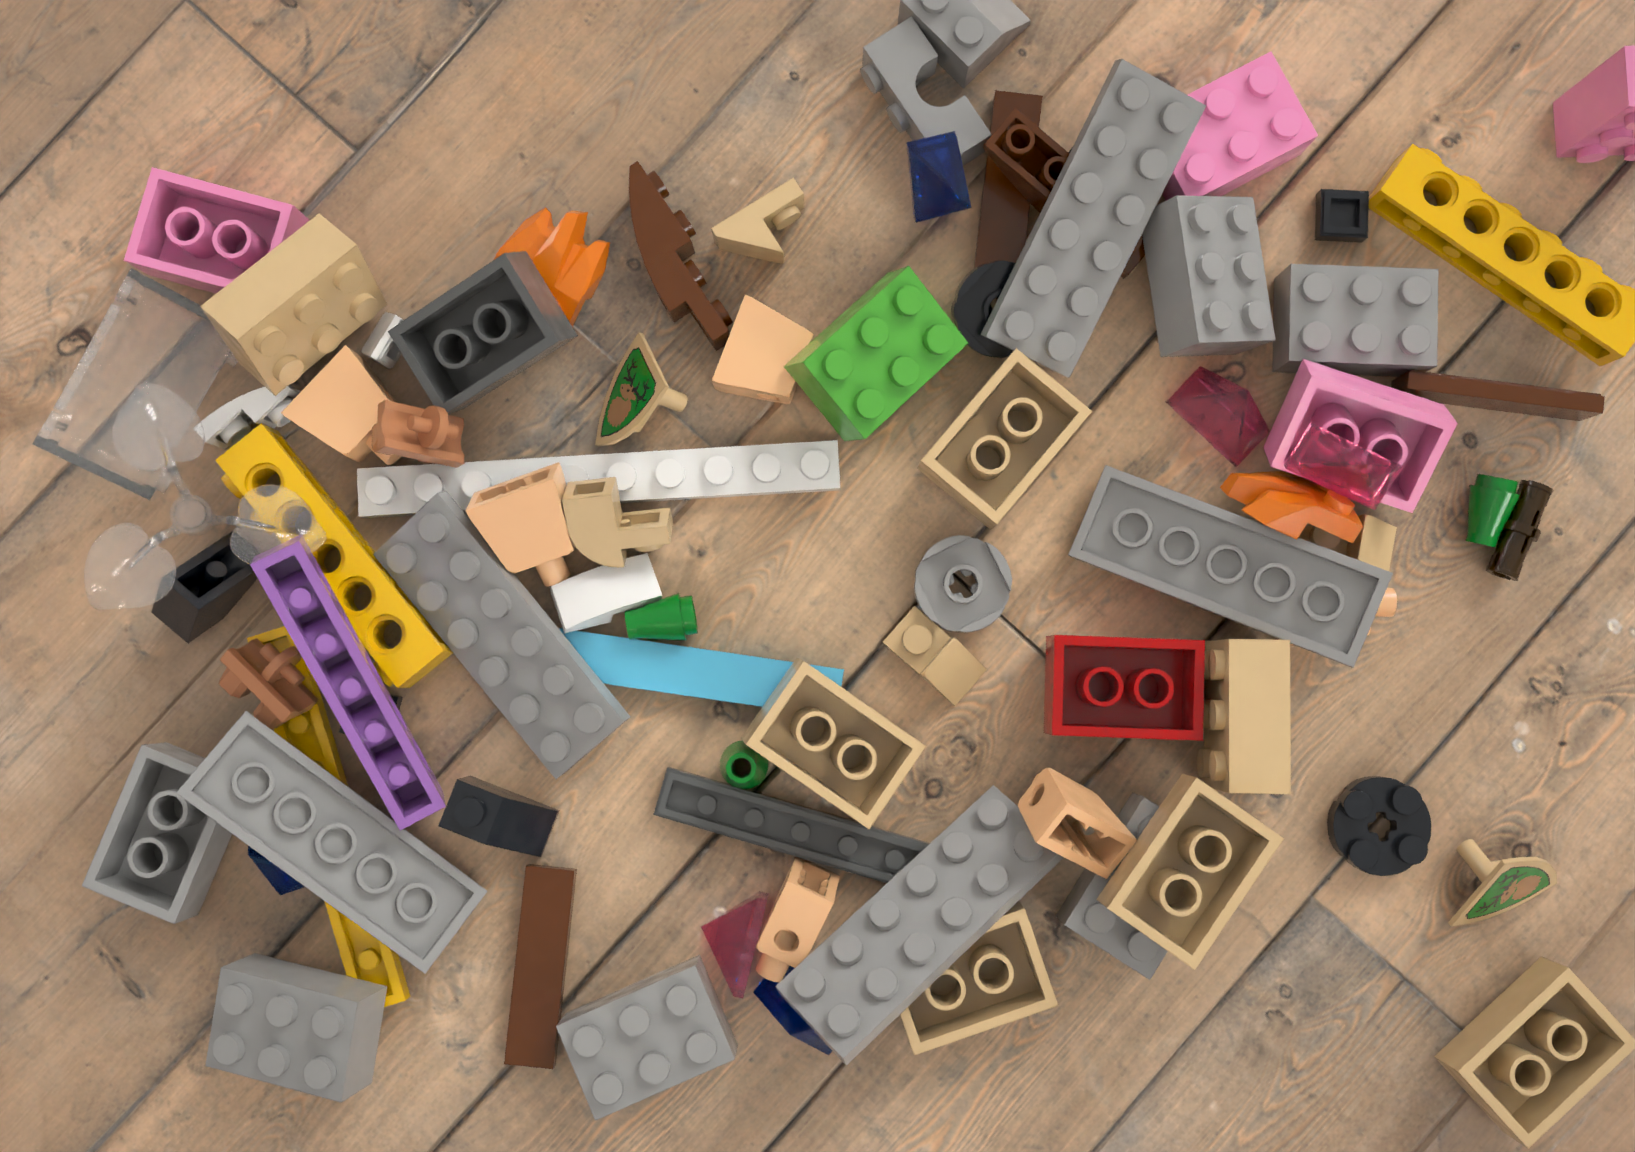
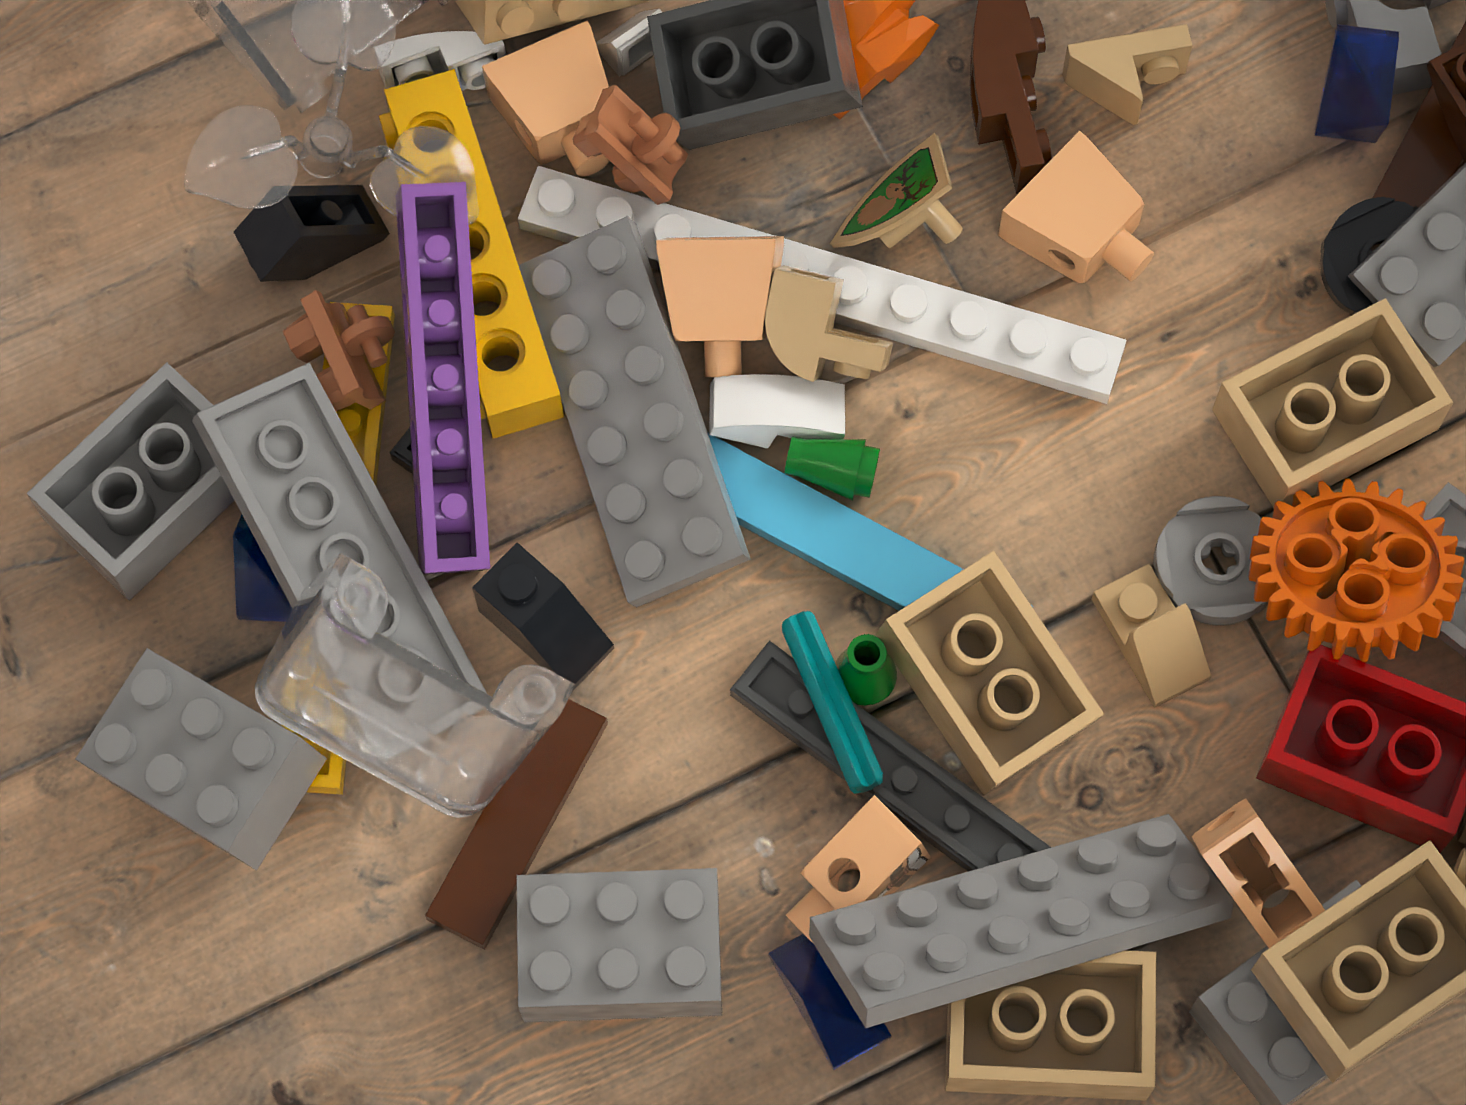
camera: 20 degrees right, 15 degrees down
(352, 959) = (393, 708): none -> clear windscreen
(729, 801) = (832, 702): none -> teal axle
(735, 938) = (772, 877): clear pink slope -> none
(876, 354) = (1211, 249): bright green brick -> none
(1107, 579) = (1356, 570): none -> orange gear

